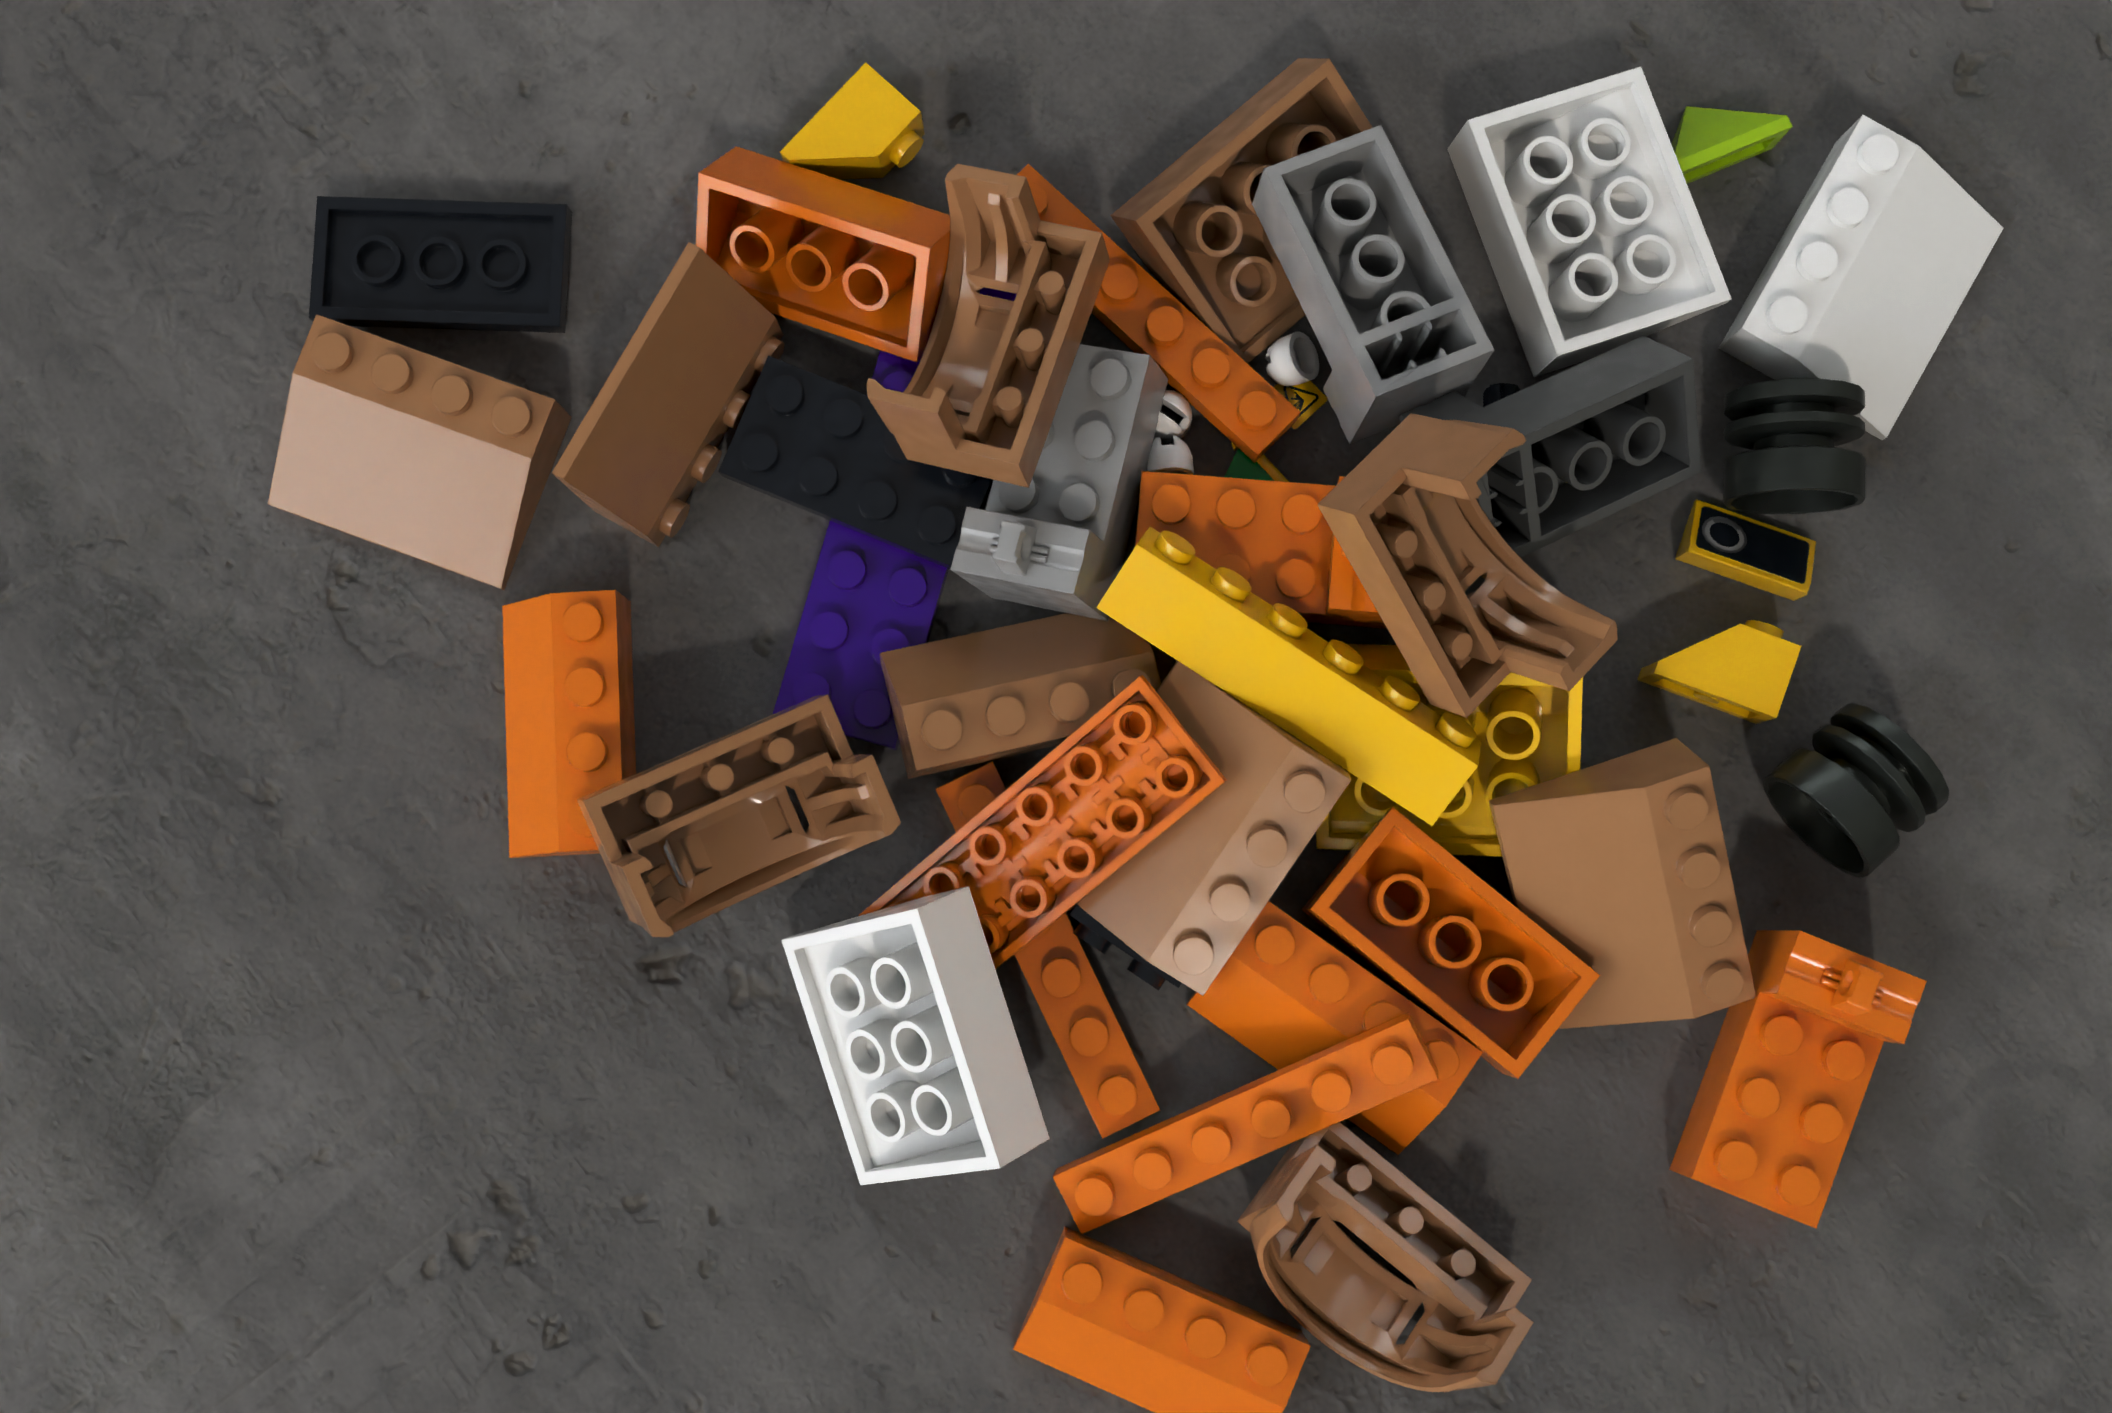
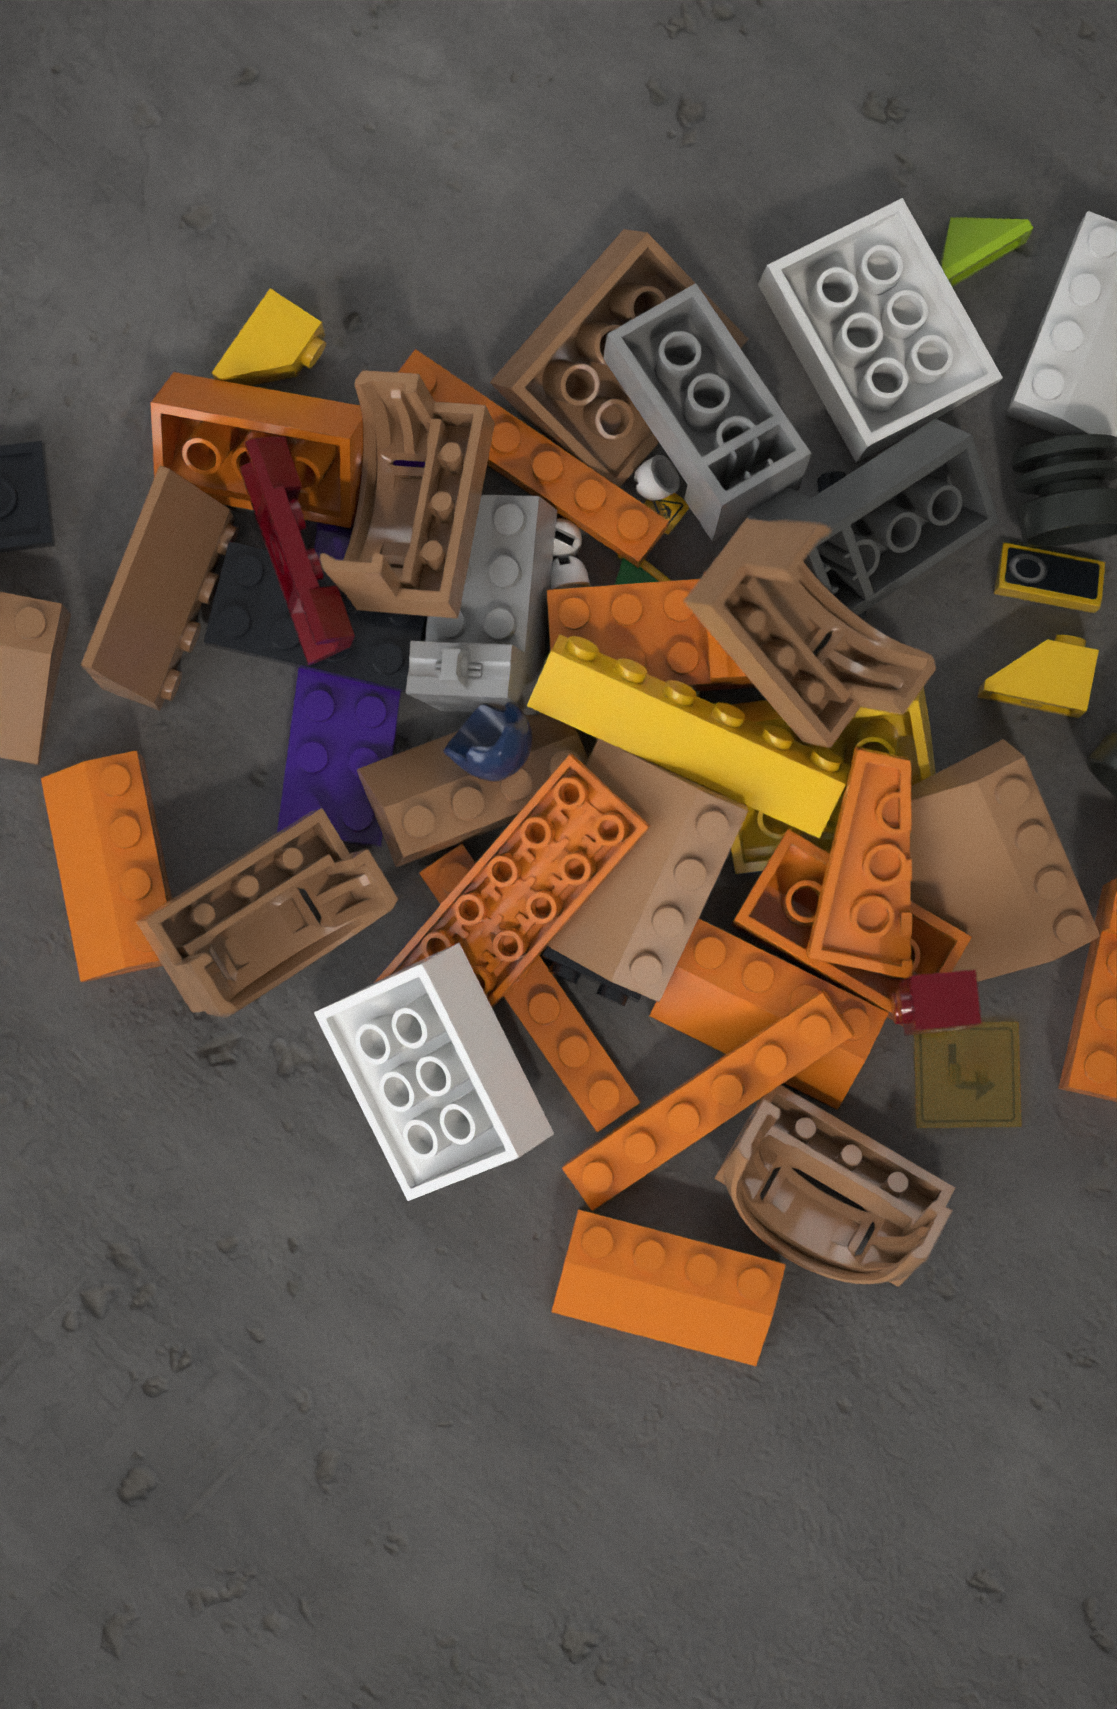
camera: 10 degrees left, 0 degrees up
(828, 302) = (274, 494): none -> dark red piece
(1047, 646) = (492, 742): none -> dark blue hair
(1485, 889) = (865, 892): none -> orange wing
(1554, 1058) = (937, 1002): none -> dark red brick
(1562, 1137) = (968, 1077): none -> clear yellow piece

